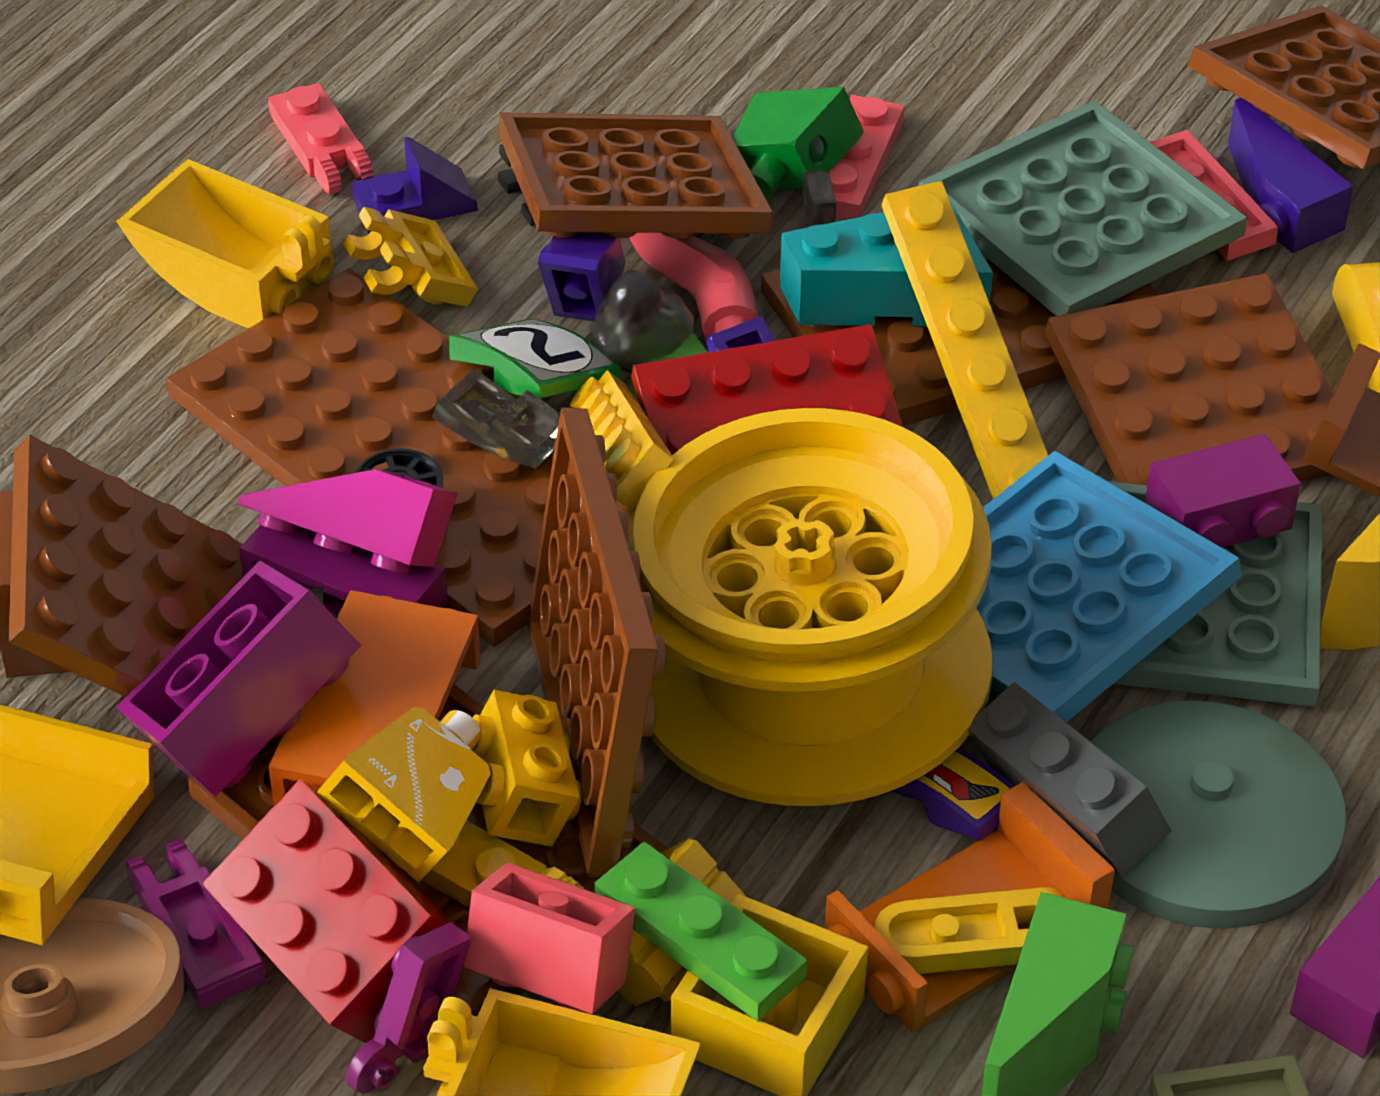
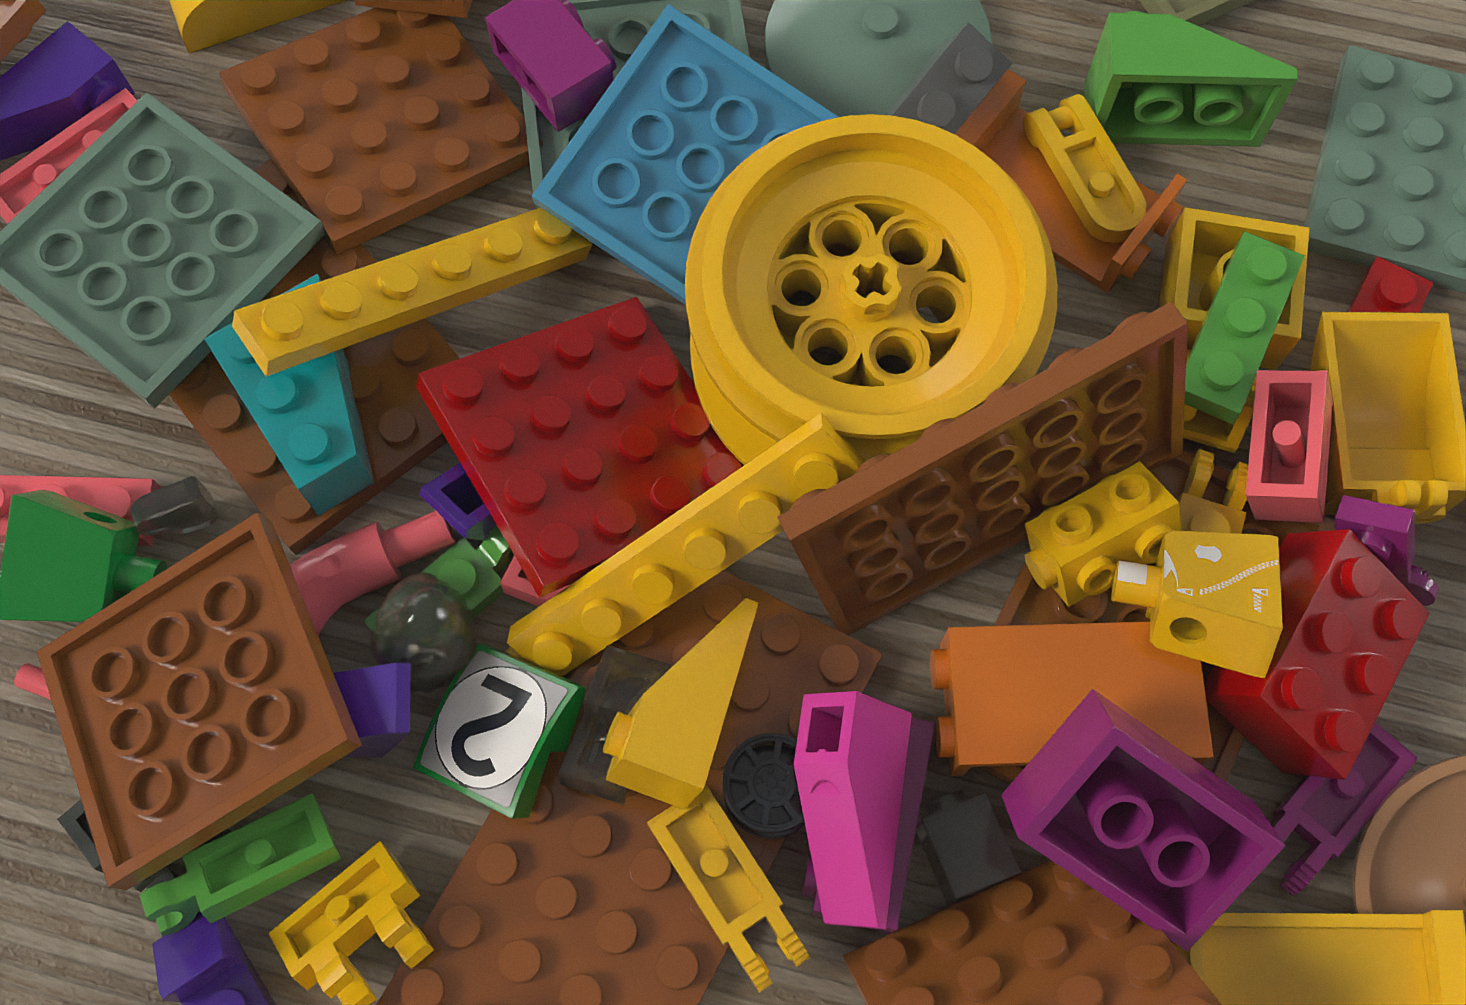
camera: 105 degrees left, 25 degrees up
(323, 450) = (725, 881): none -> yellow hinge
(474, 421) = (676, 724): none -> yellow slope
(494, 214) = (244, 866): none -> bright green plate

